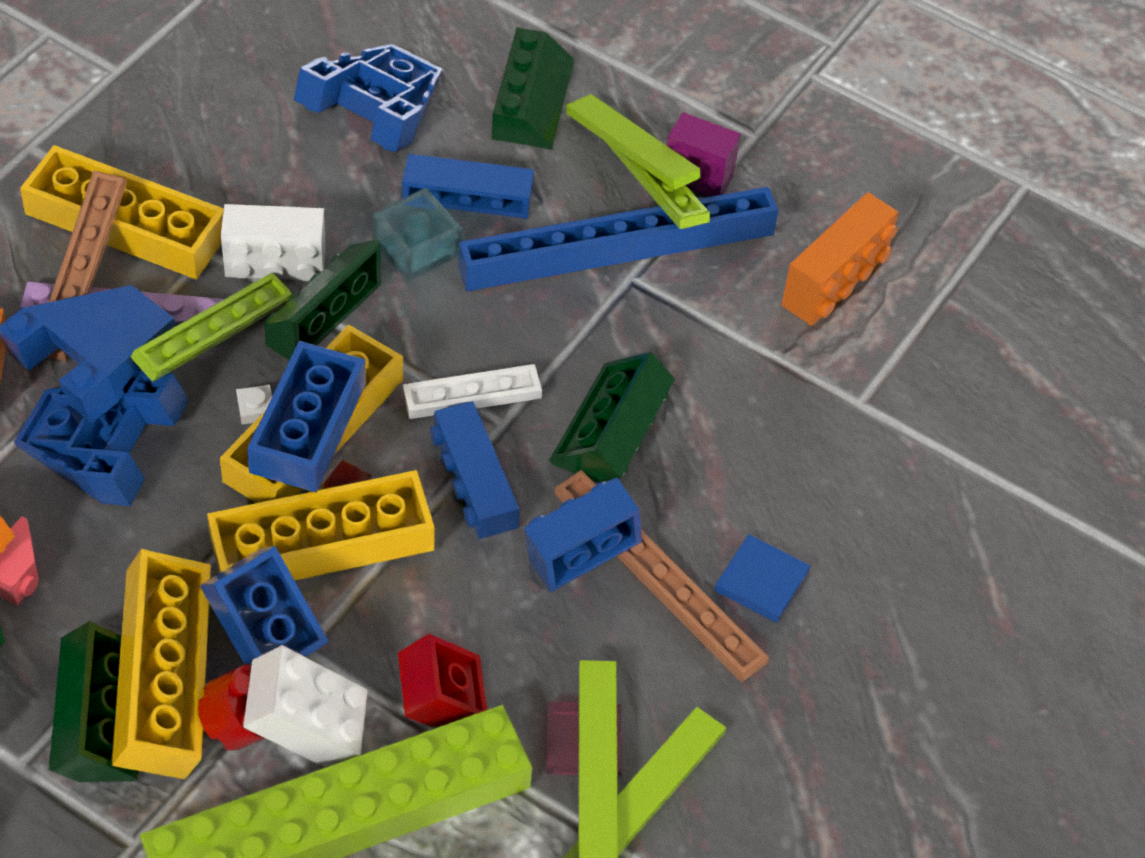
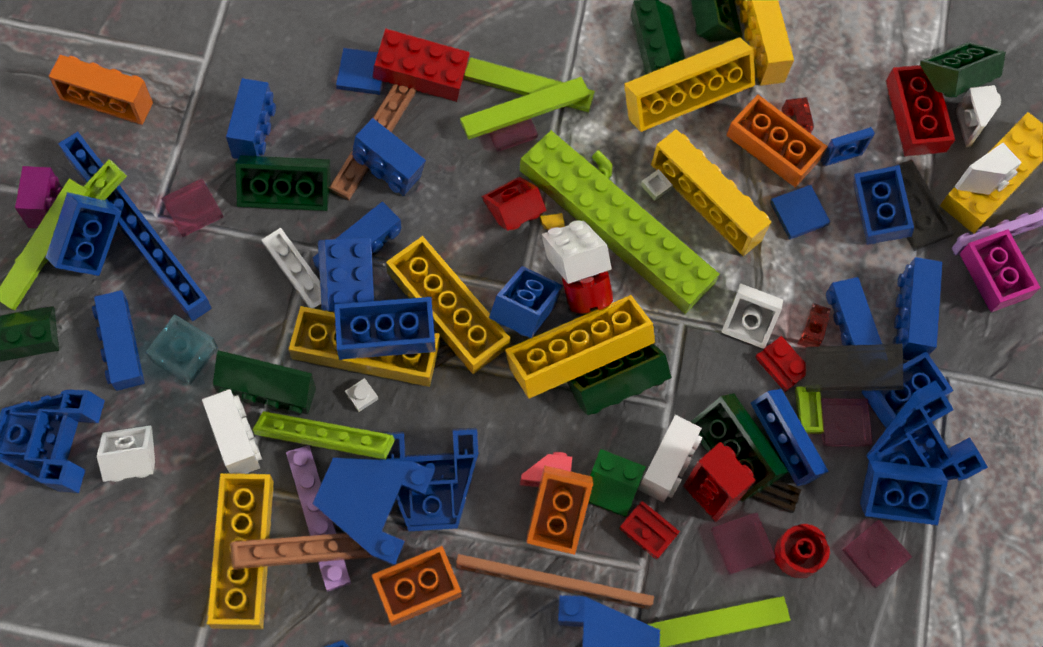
camera: 115 degrees left, 15 degrees up
(316, 152) = (126, 454): none -> white slope
(383, 729) = (552, 221): none -> yellow tile
(422, 419) = (345, 271): none -> blue brick
(445, 843) = (605, 165): none -> lime arm
(617, 167) = (83, 234): none -> blue brick
(624, 315) = (192, 207): none -> clear pink tile
(721, 400) = (250, 119): none -> blue brick
(731, 644) = (420, 65): none -> red brick

